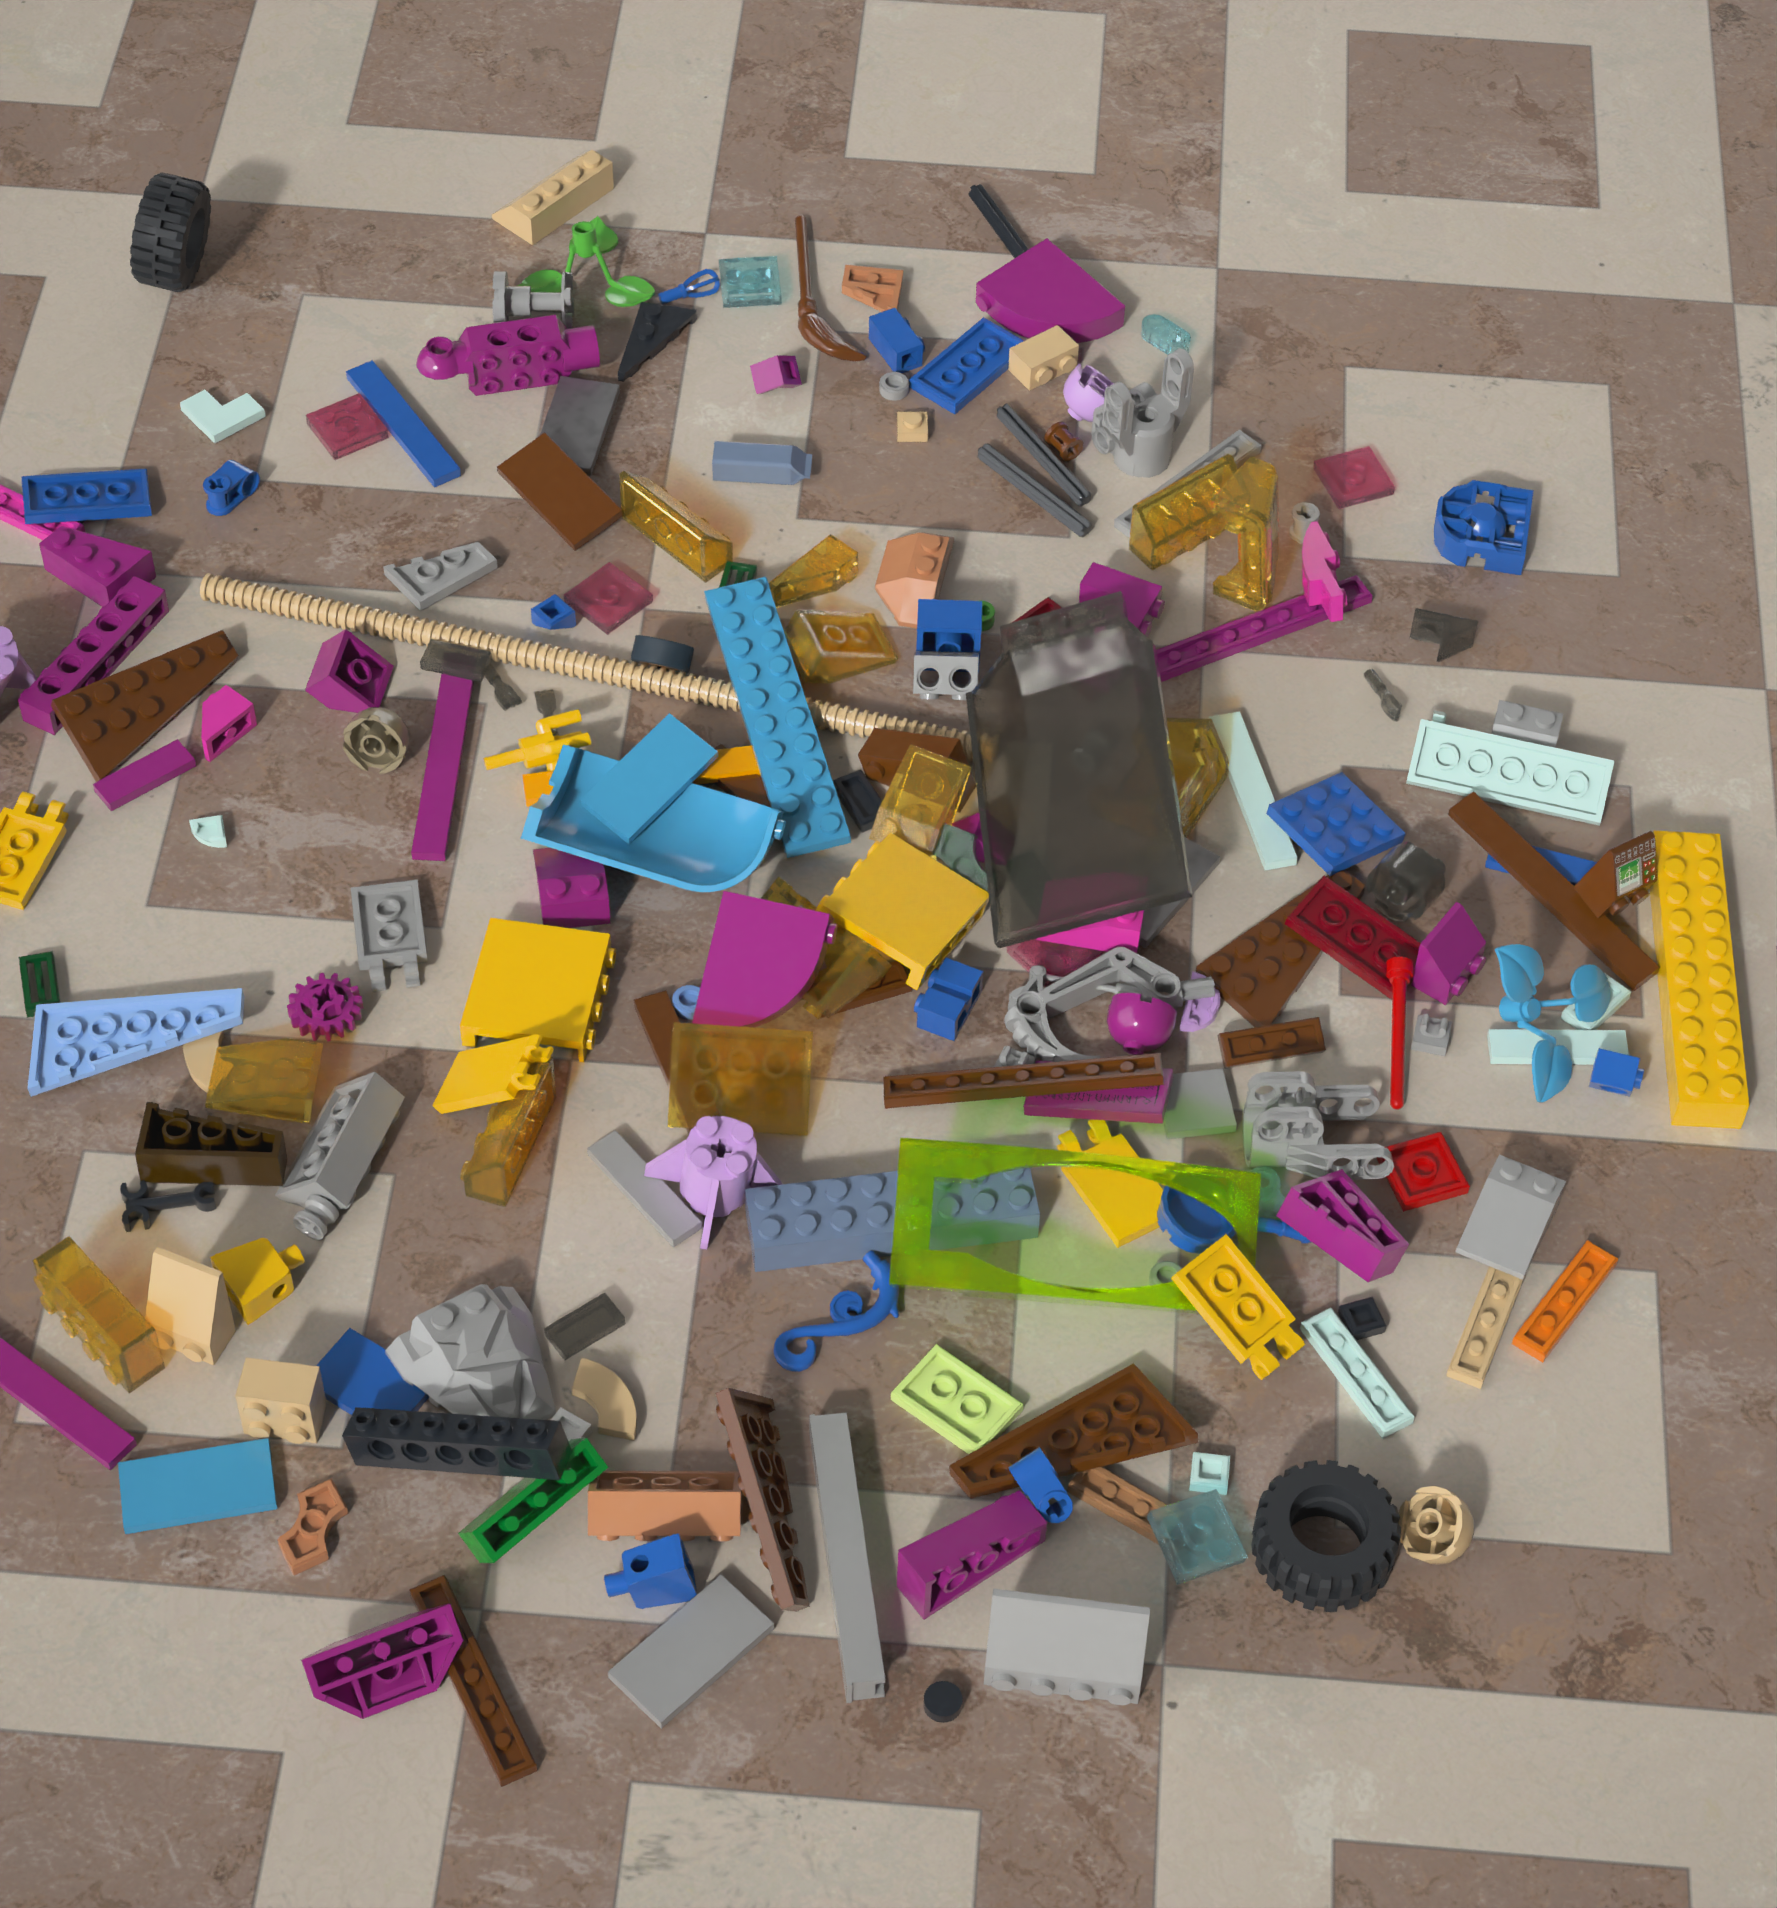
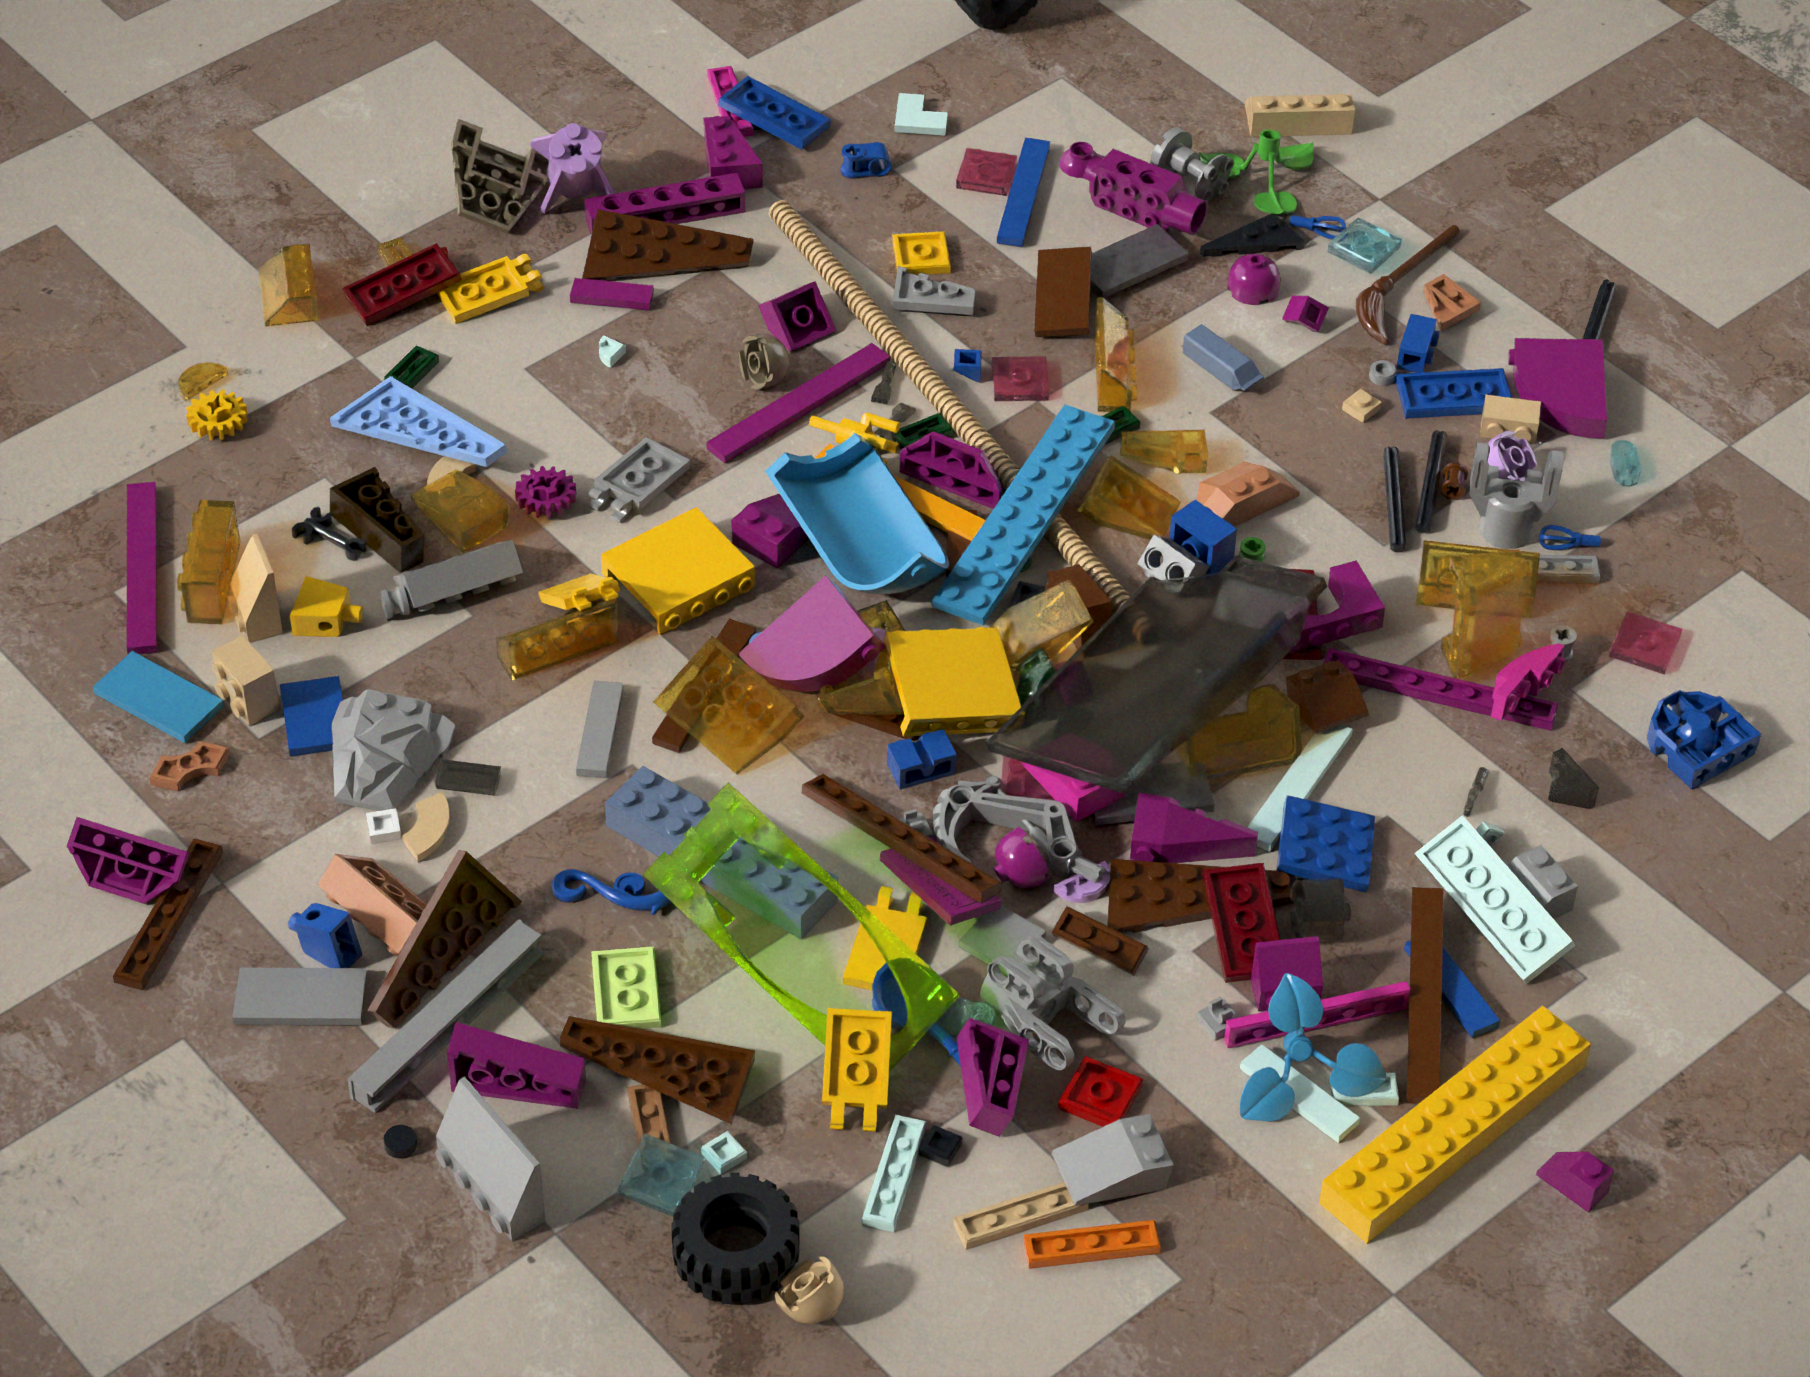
camera: 45 degrees right, 5 degrees down
(225, 720) = (688, 293): dark pink slope -> none
(381, 541) = (922, 252): none -> yellow tile
(455, 660) = (871, 349): clear smoke tile -> none
(457, 1443) = (301, 773): black brick -> none
(530, 1505) = (310, 840): green brick -> none
(598, 711) = (921, 428): none -> dark green tile
(649, 778) = (893, 493): dark azure tile -> none
(662, 653) = (1000, 429): black wheel -> none
(687, 702) = (952, 468): none -> magenta wedge
(697, 373) = (1254, 279): none -> magenta cylinder
(714, 1167) = (638, 737): lavender brick -> none
(1041, 1483) = (600, 1064): blue piece -> none
(1200, 691) = (1326, 696): none -> reddish brown slope
(1205, 428) = (1576, 538): none -> blue piece
(1228, 902) = (1179, 835): none -> magenta wedge
(1399, 972) = (1238, 960): red piece -> none
(1492, 983) = (1335, 1011): none -> dark pink tile
(1616, 1072) = (1310, 1134): blue brick -> none
(1620, 876) = (1472, 1012): reddish brown slope -> none

